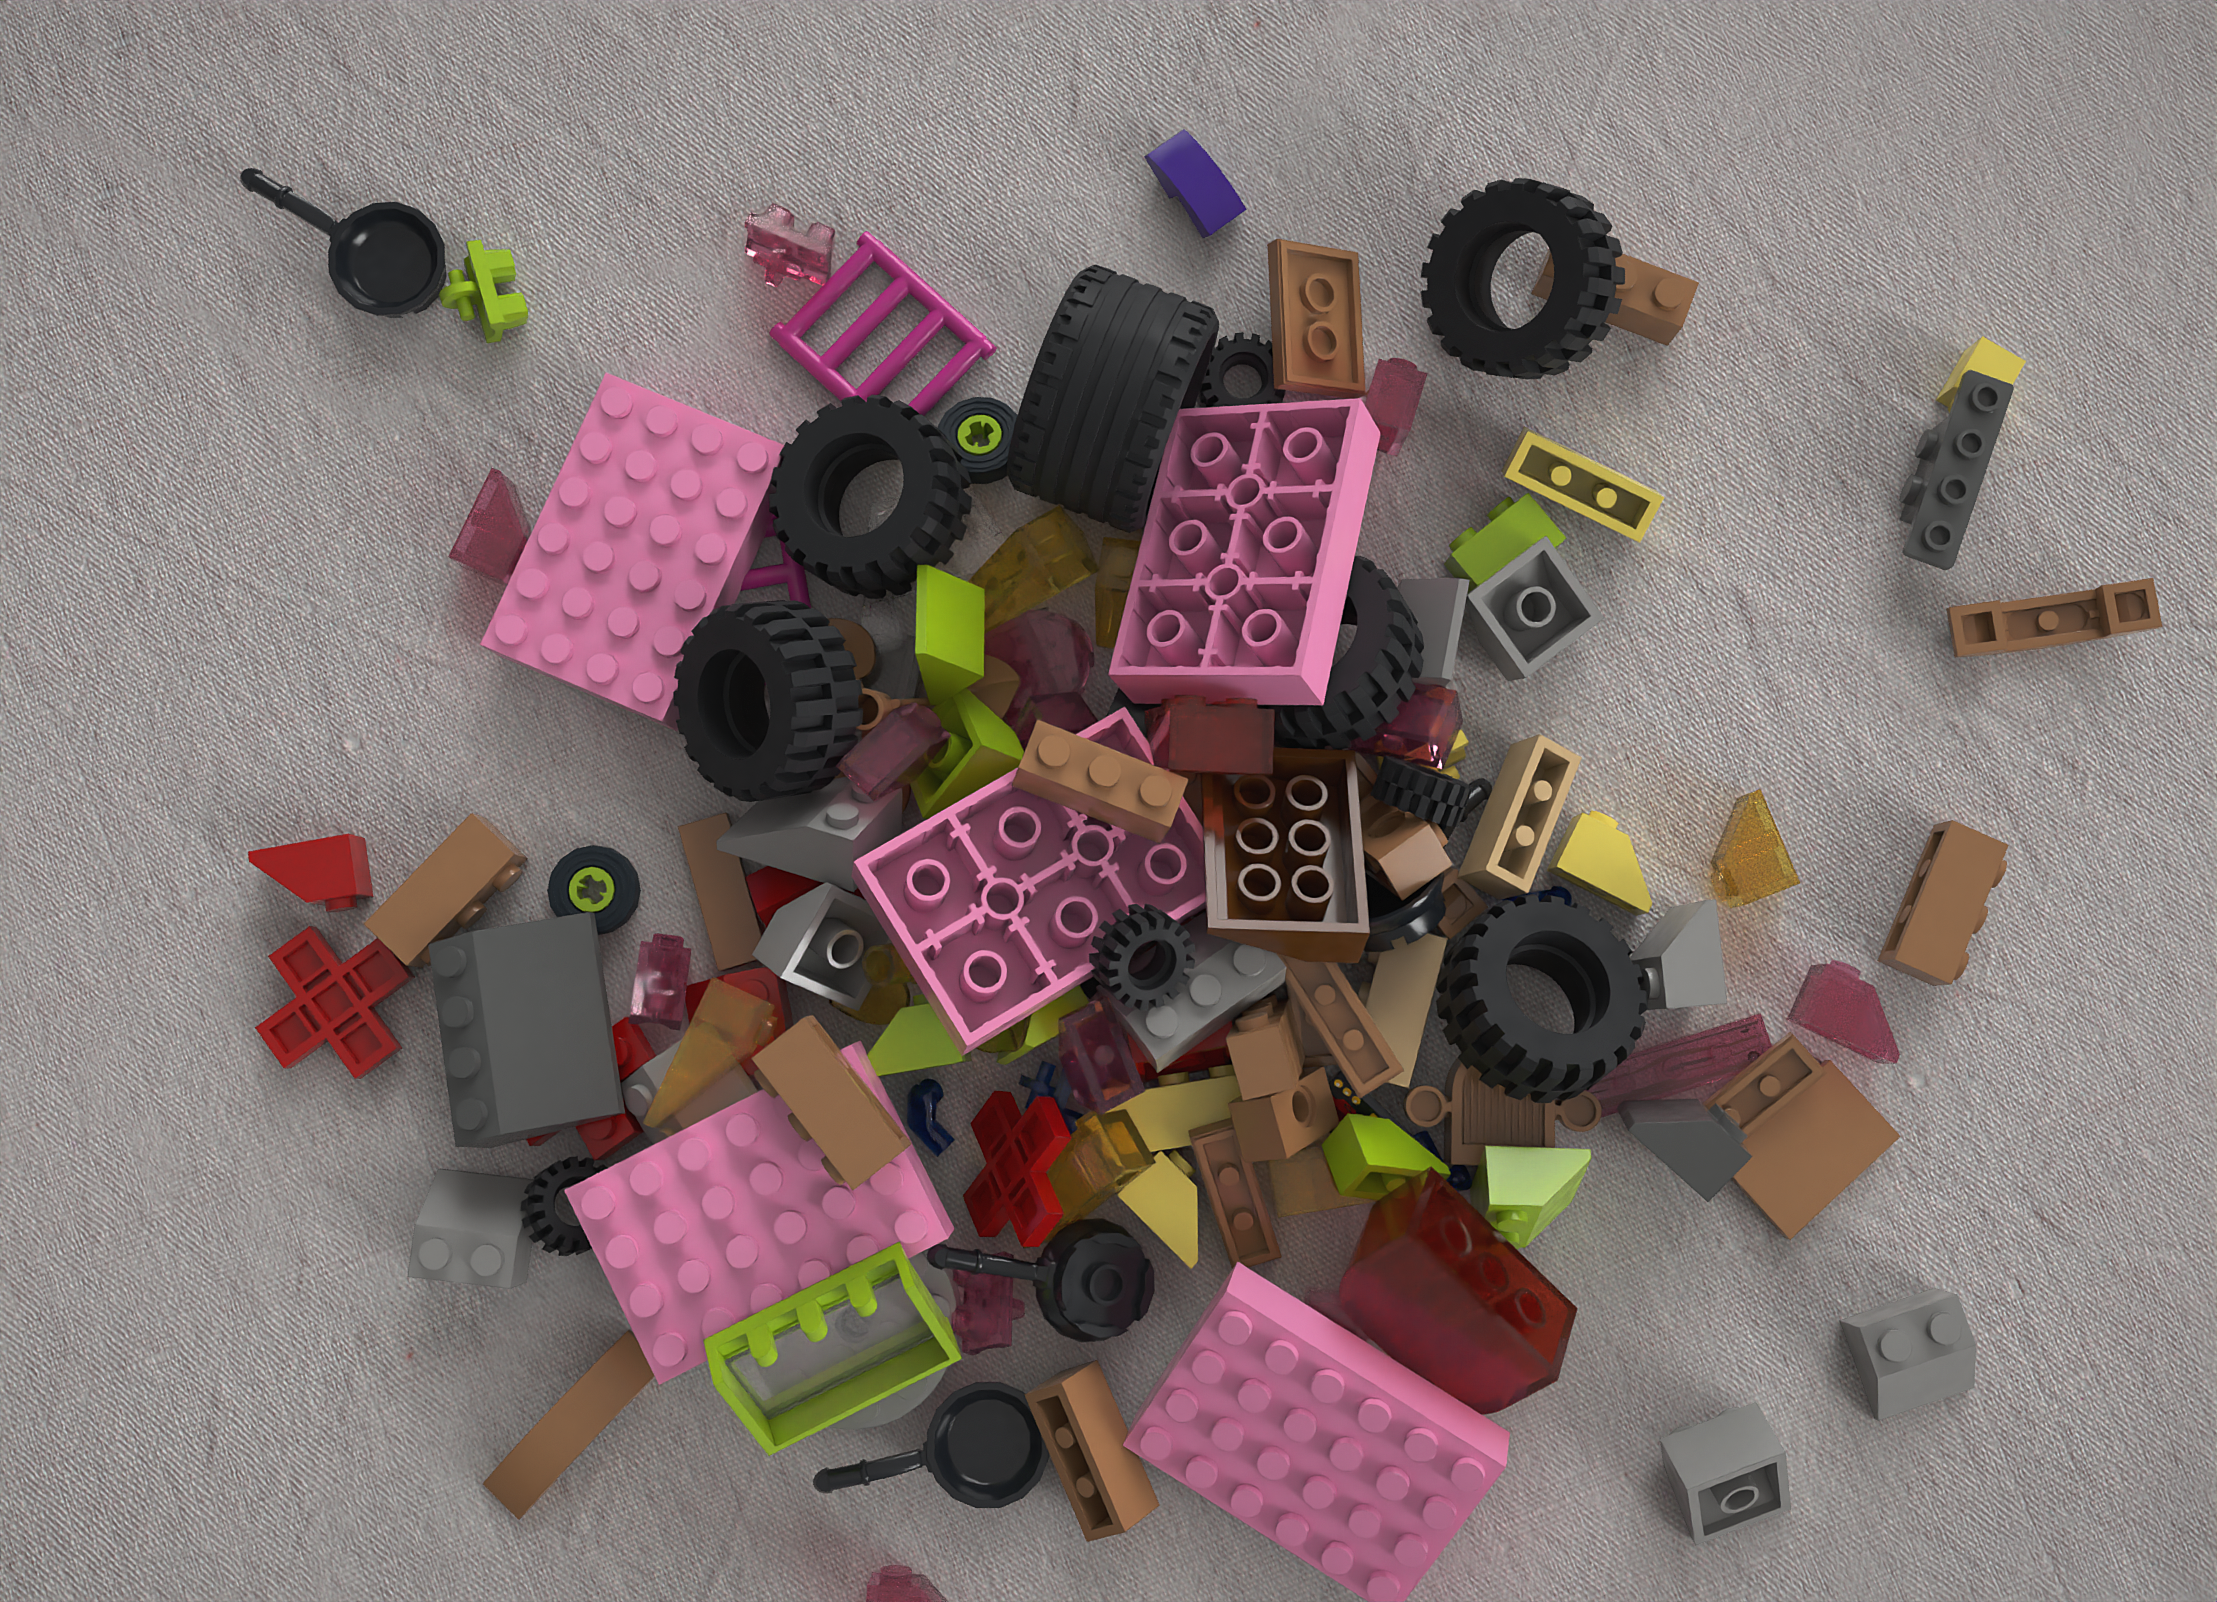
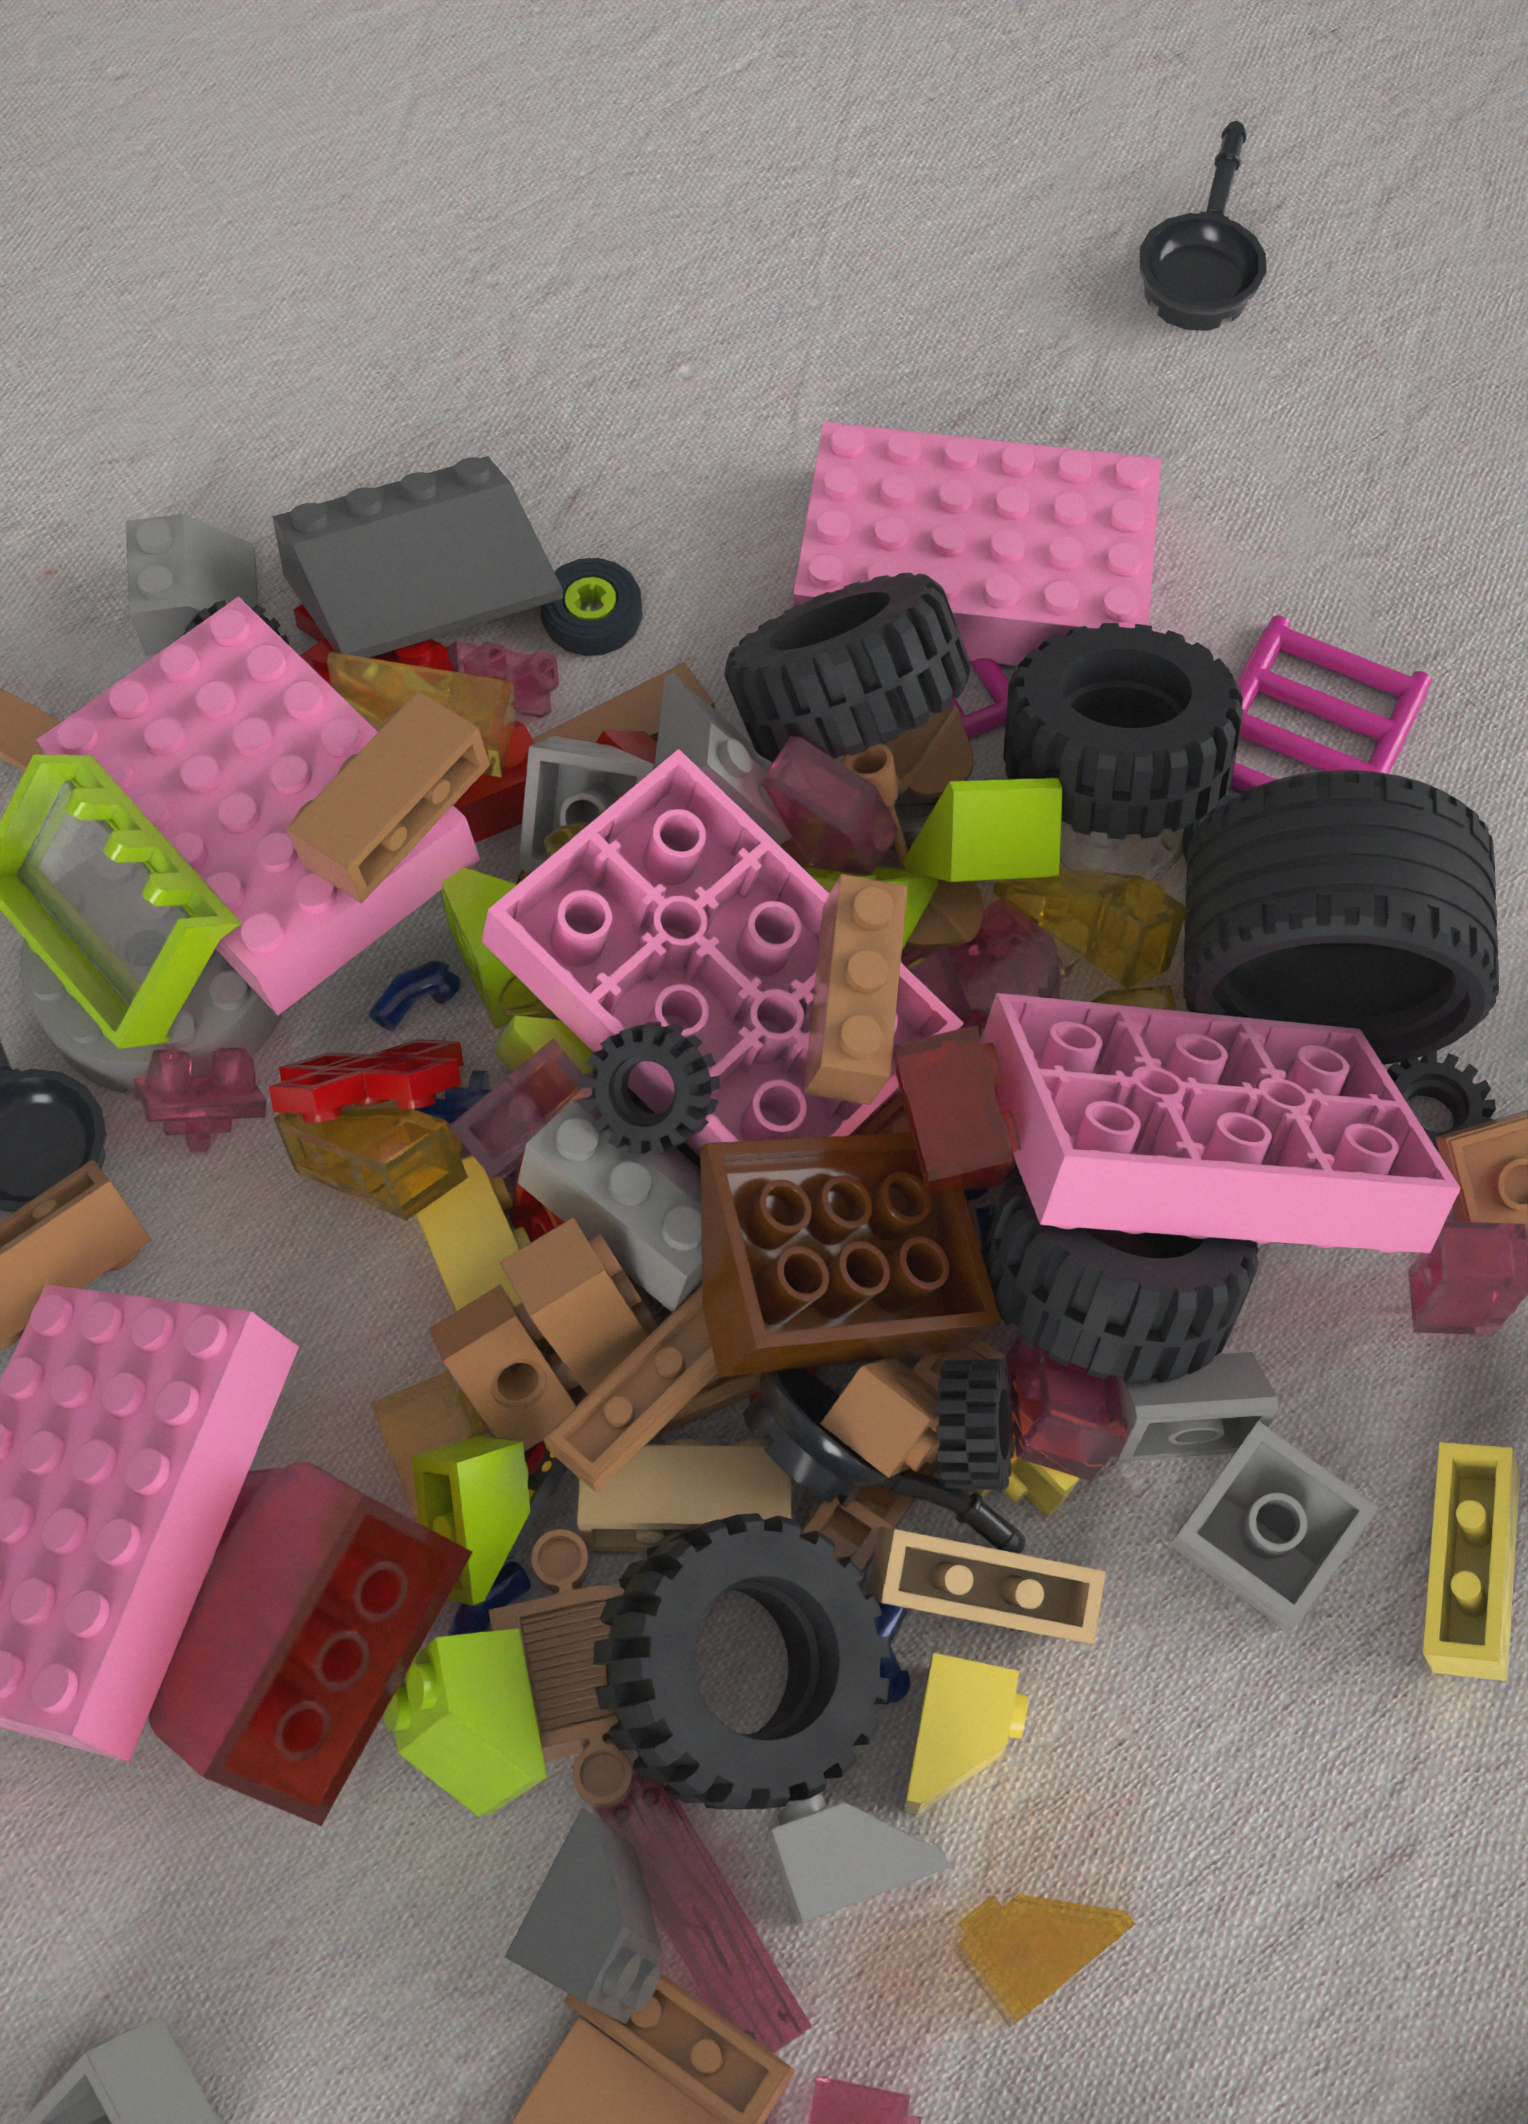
camera: 75 degrees right, 20 degrees down
(320, 870) = (544, 366): red slope -> none
(334, 1003) = (408, 412): red plate -> none
(447, 890) = (559, 473): medium nougat brick -> none
(483, 271) = (1189, 365): lime hips -> none
(493, 531) = (959, 410): clear pink slope -> none
(786, 250) = (1371, 606): clear pink hips -> none
(1086, 1281) = (249, 1204): black piece -> none
(1167, 1203) = (362, 1278): light yellow slope -> none
(1234, 1195) = (383, 1352): medium nougat tile -> none
(1510, 532) = (1378, 1476): lime brick -> none

